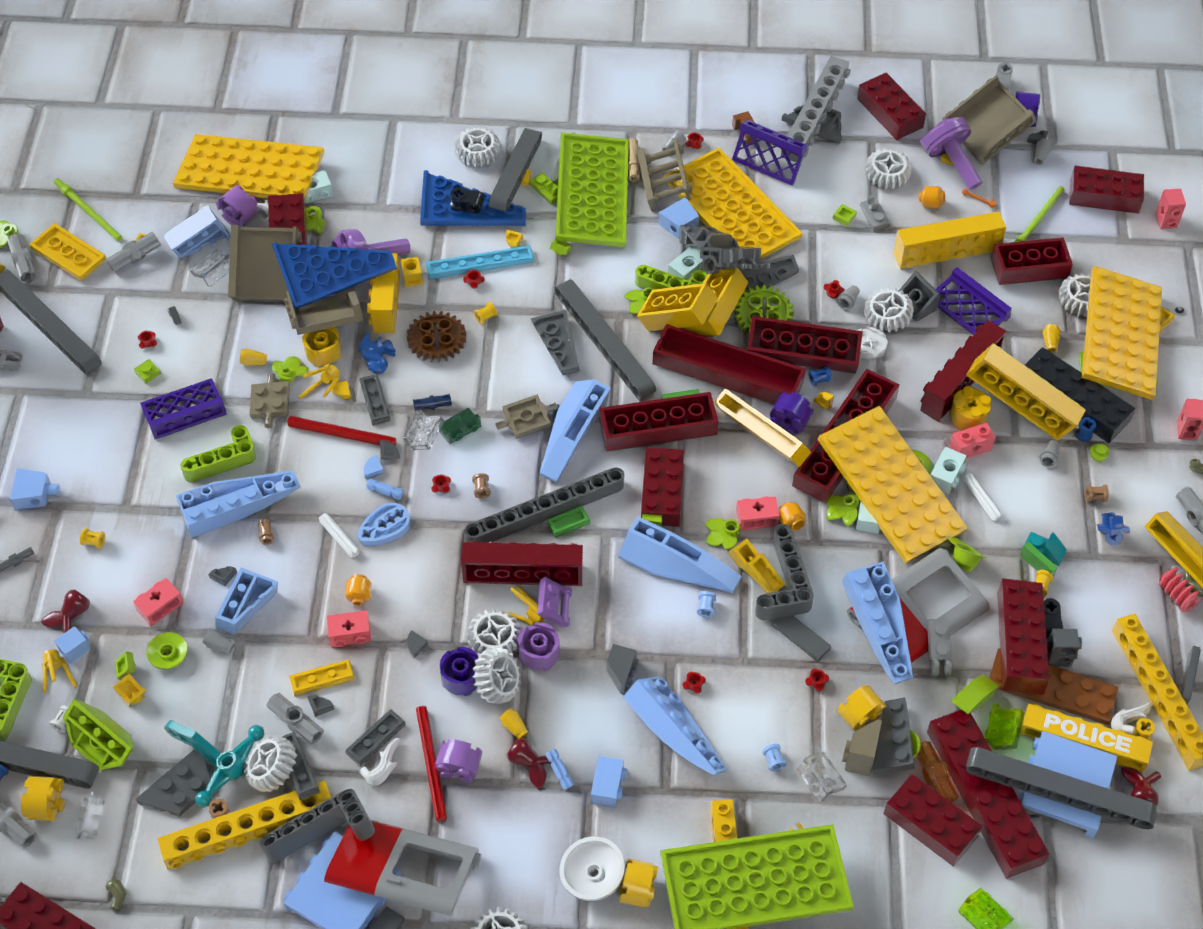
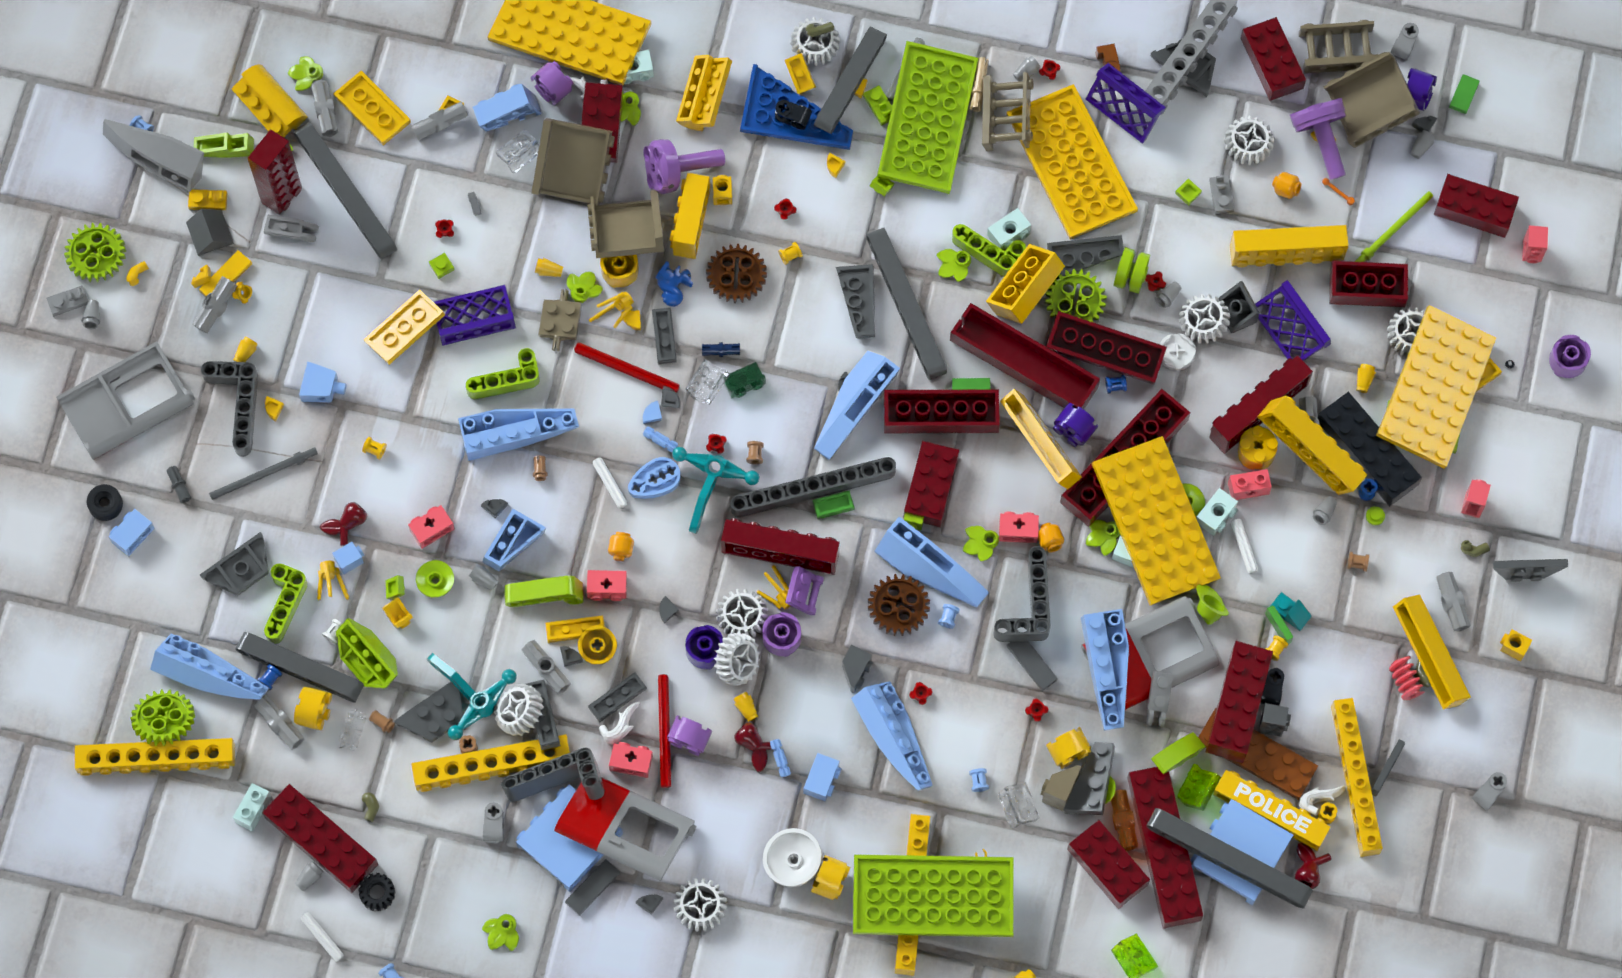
camera: 10 degrees right, 15 degrees up
(68, 192) = (376, 28): lime bar -> none
(114, 426) = (404, 327): none -> yellow plate
(127, 804) = (382, 721): none -> medium nougat pin
(256, 890) = (493, 826): none -> light grey piece
(284, 642) = (545, 590): none -> lime beam
(324, 271) = (629, 187): blue wing -> none
(335, 686) = (588, 638): none -> yellow brick
(381, 197) = (703, 92): none -> yellow brick
(389, 801) = (640, 764): none -> coral brick
(432, 500) = (704, 463): none -> teal piece
(468, 171) = (800, 73): none -> yellow plate
(475, 134) = (813, 31): none -> olive arm
(479, 262) = (795, 188): medium azure tile -> none
(526, 416) = (812, 382): dark tan plate -> none
(649, 616) = (891, 620): none -> reddish brown gear
(677, 307) = (984, 286): yellow brick -> none
(678, 214) = (1013, 170): light blue torso -> none
(721, 249) = (1046, 225): dark grey connector -> none
(756, 566) = (1004, 586): yellow slope -> none
(813, 279) = (1132, 270): none -> lime wheel
(824, 400) = (1114, 412): yellow tile -> none
(942, 103) = (1331, 62): none -> dark tan fence
(1065, 111) = (1464, 94): none -> bright green tile
(1113, 527) = (1361, 603): blue hips -> none

